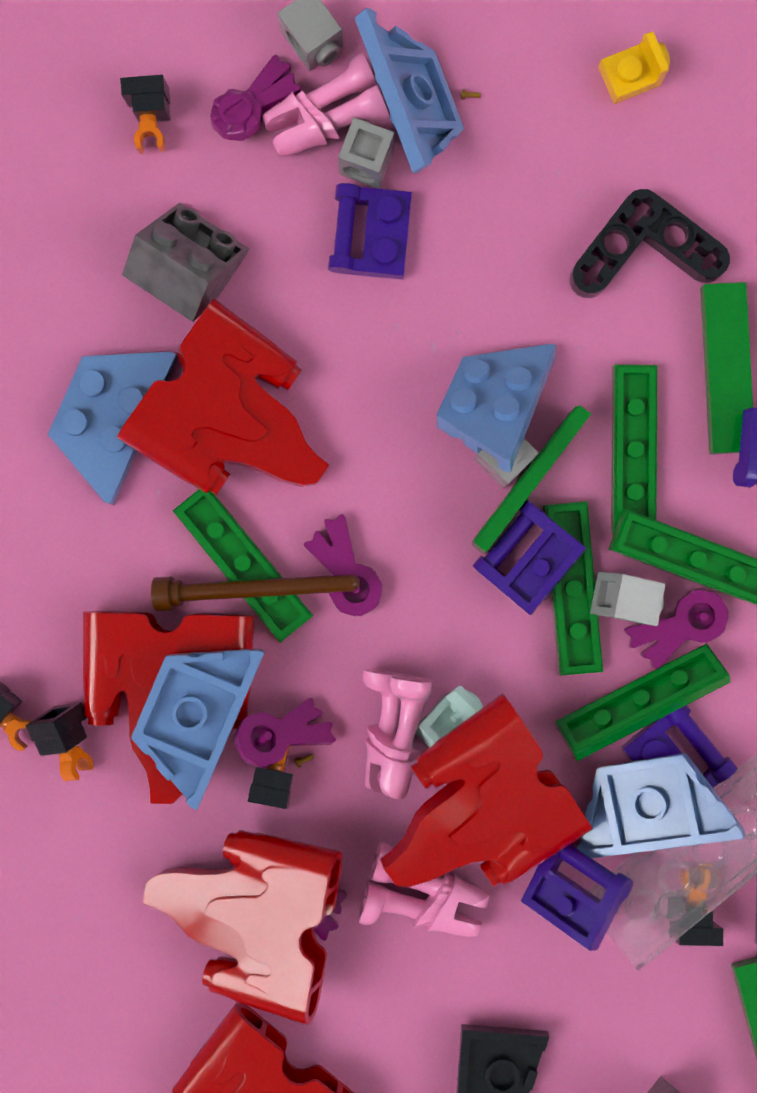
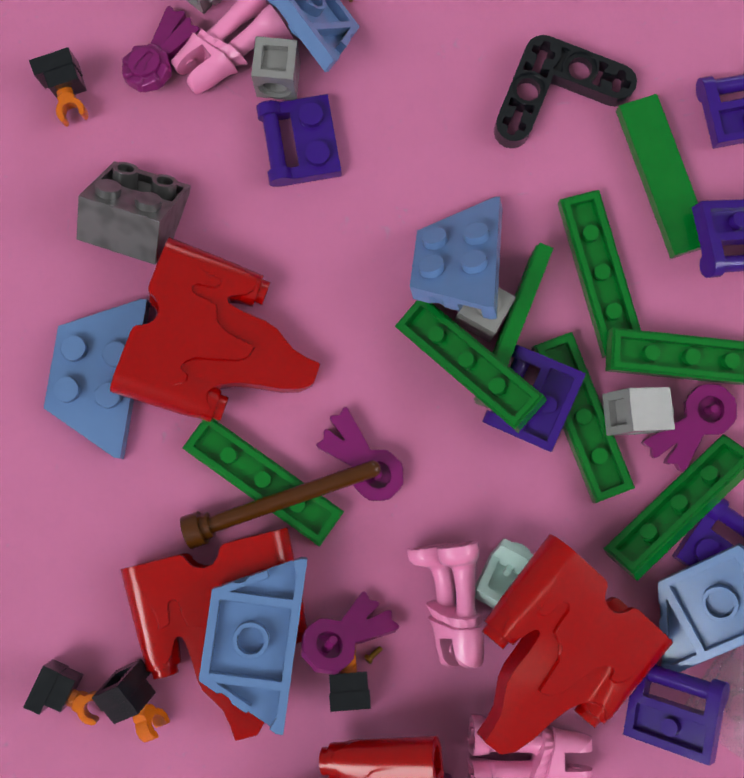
camera: 20 degrees left, 5 degrees down
(476, 507) = (471, 364): none -> green tile

